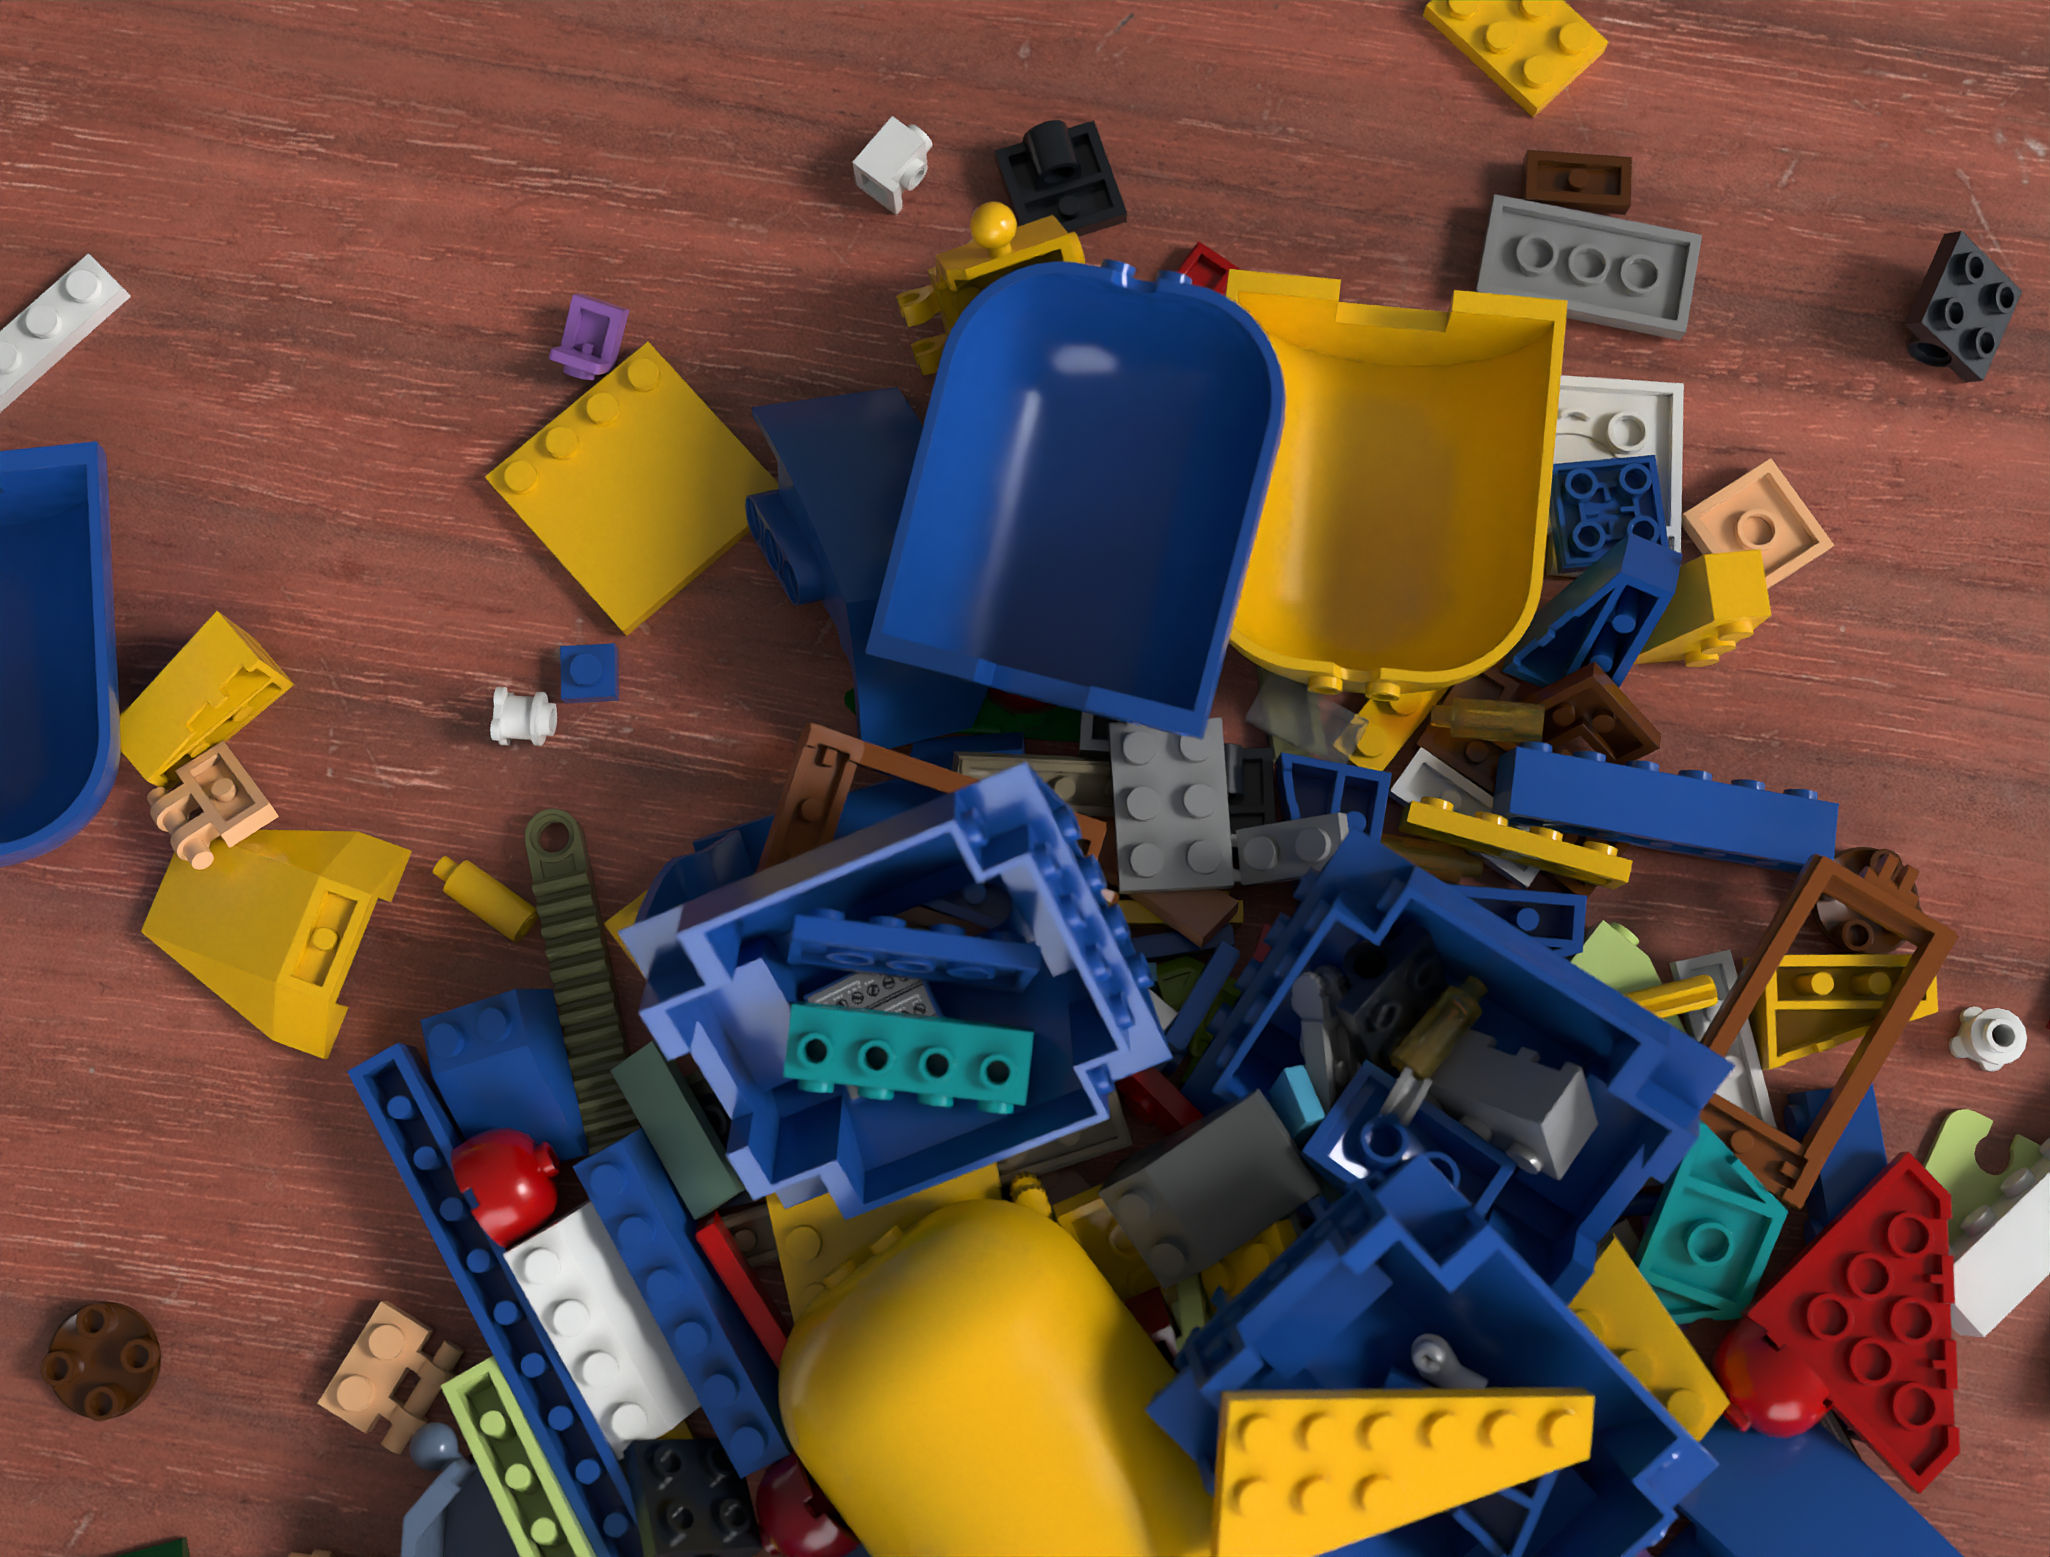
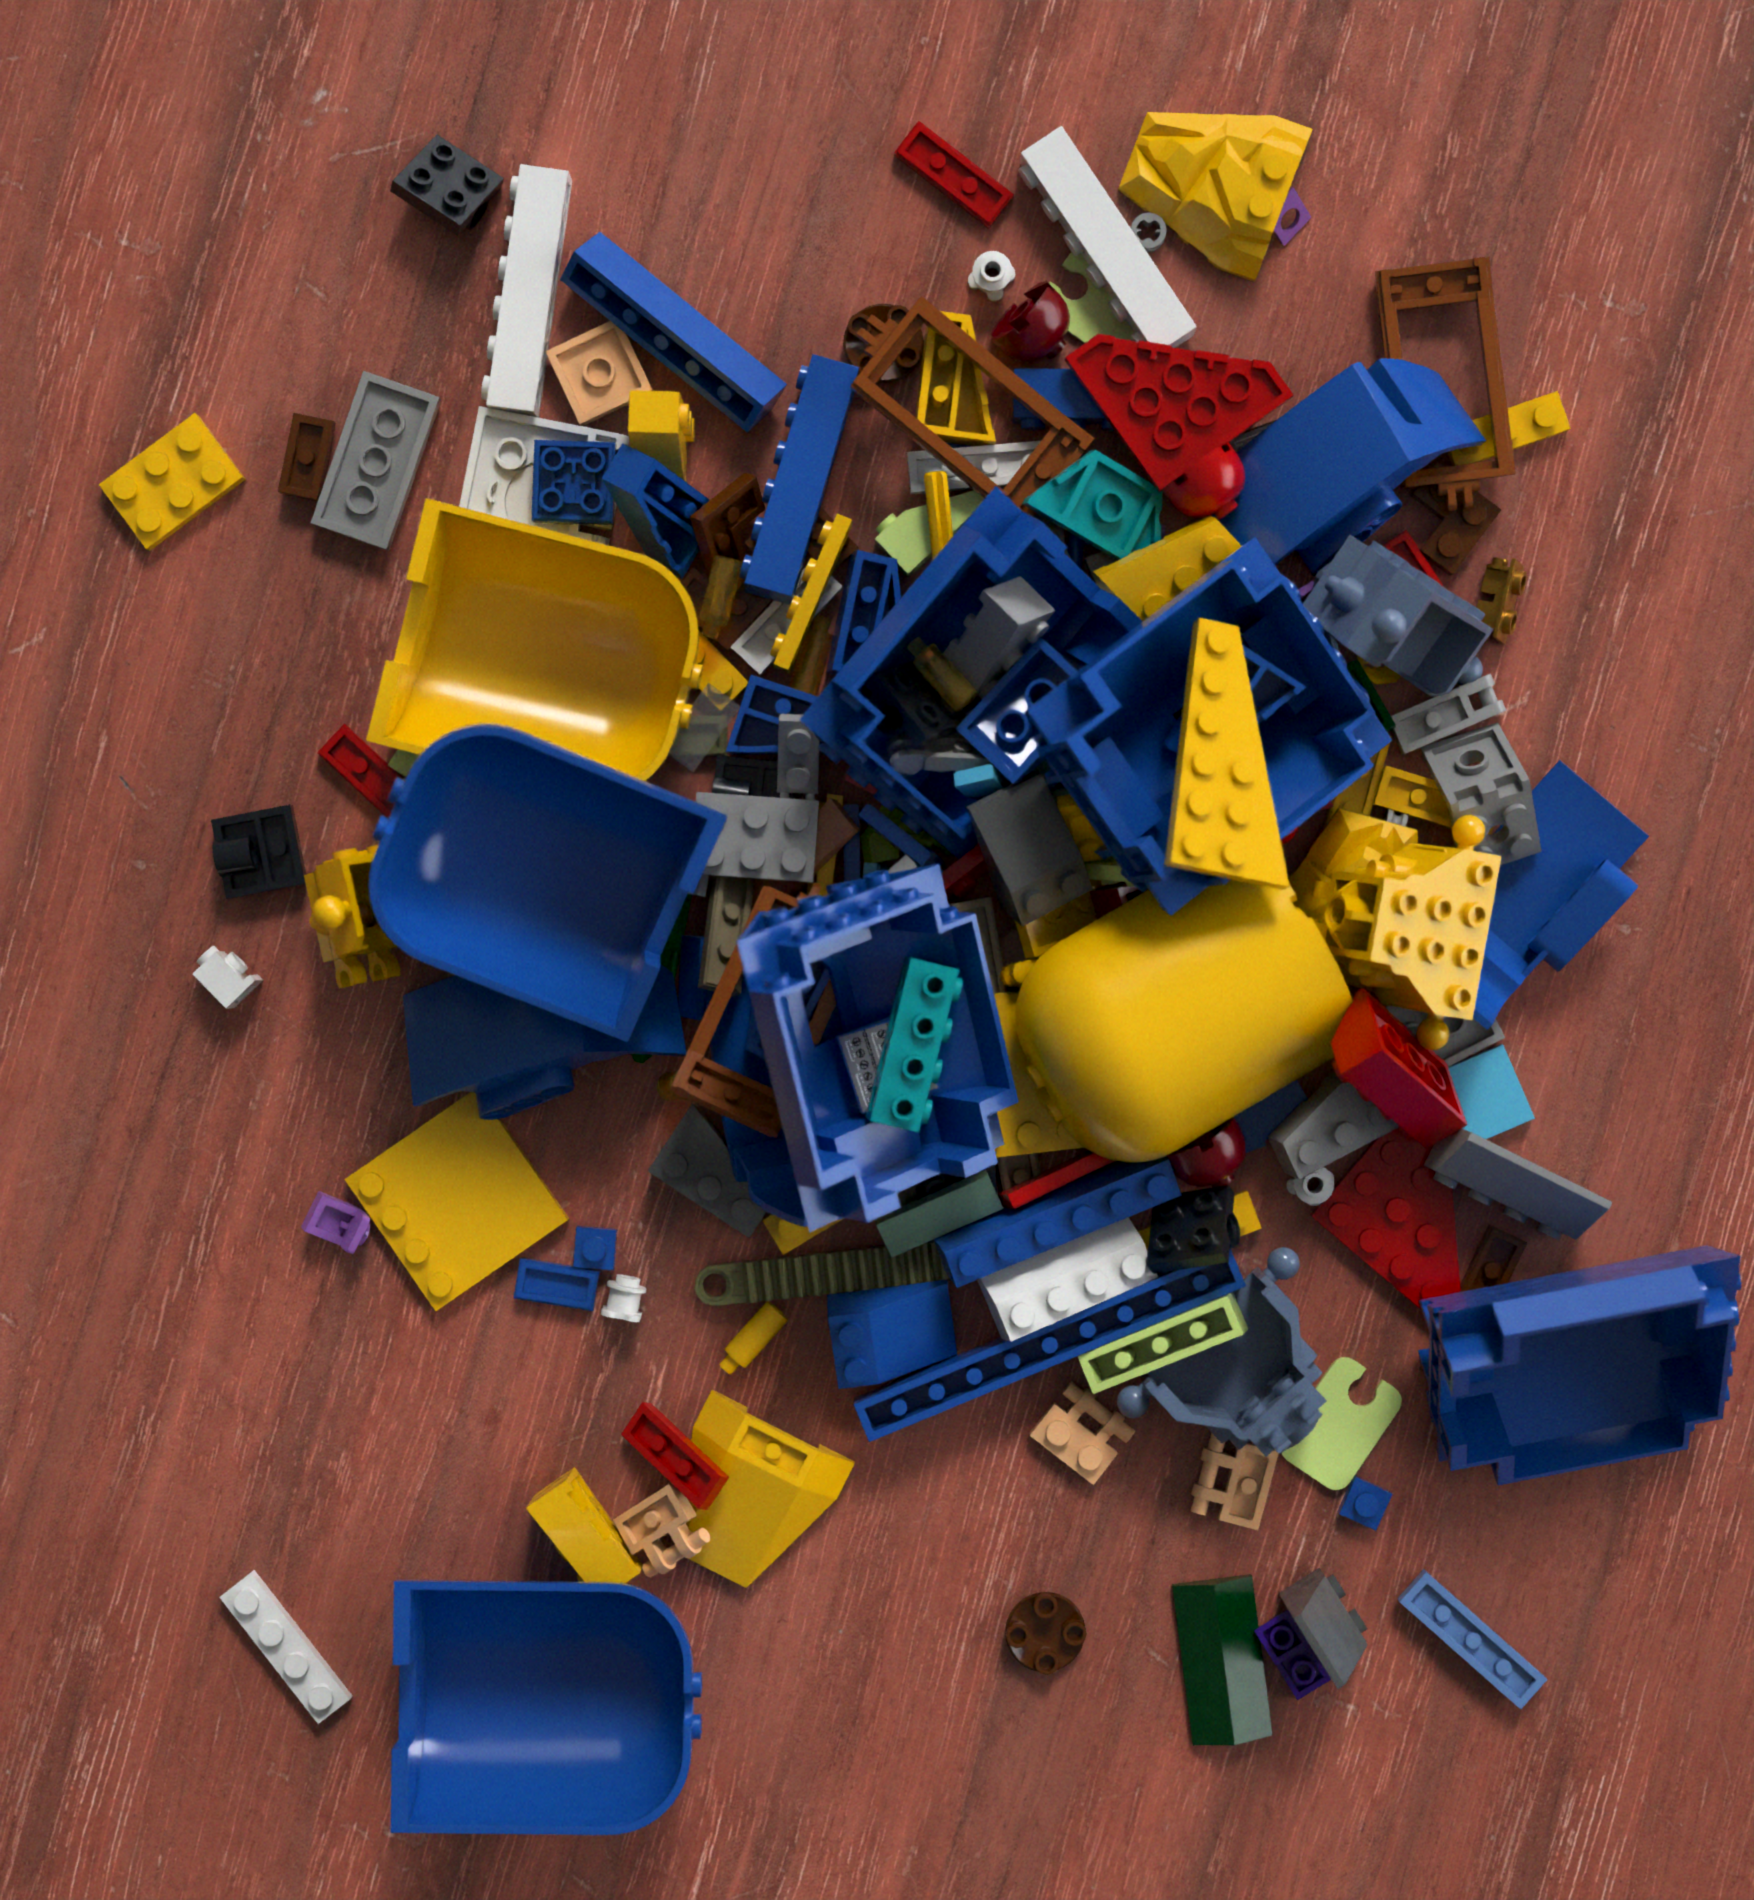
camera: 80 degrees left, 10 degrees up
(309, 809) = (675, 1456): none -> red plate
(510, 1181) = (960, 1334): red cylinder -> none
(535, 629) = (556, 1284): none -> blue tile
(707, 790) = (700, 1168): none -> dark grey wedge
(892, 950) = (841, 1048): blue plate -> none
(1406, 1096) = (985, 707): light grey bush -> none
(1440, 1365) = (1168, 708): white arm -> none
(1829, 618) = (673, 331): none -> blue brick
(1848, 427) = (528, 290): none -> white brick
(1933, 1106) = (1034, 326): none -> dark red cylinder

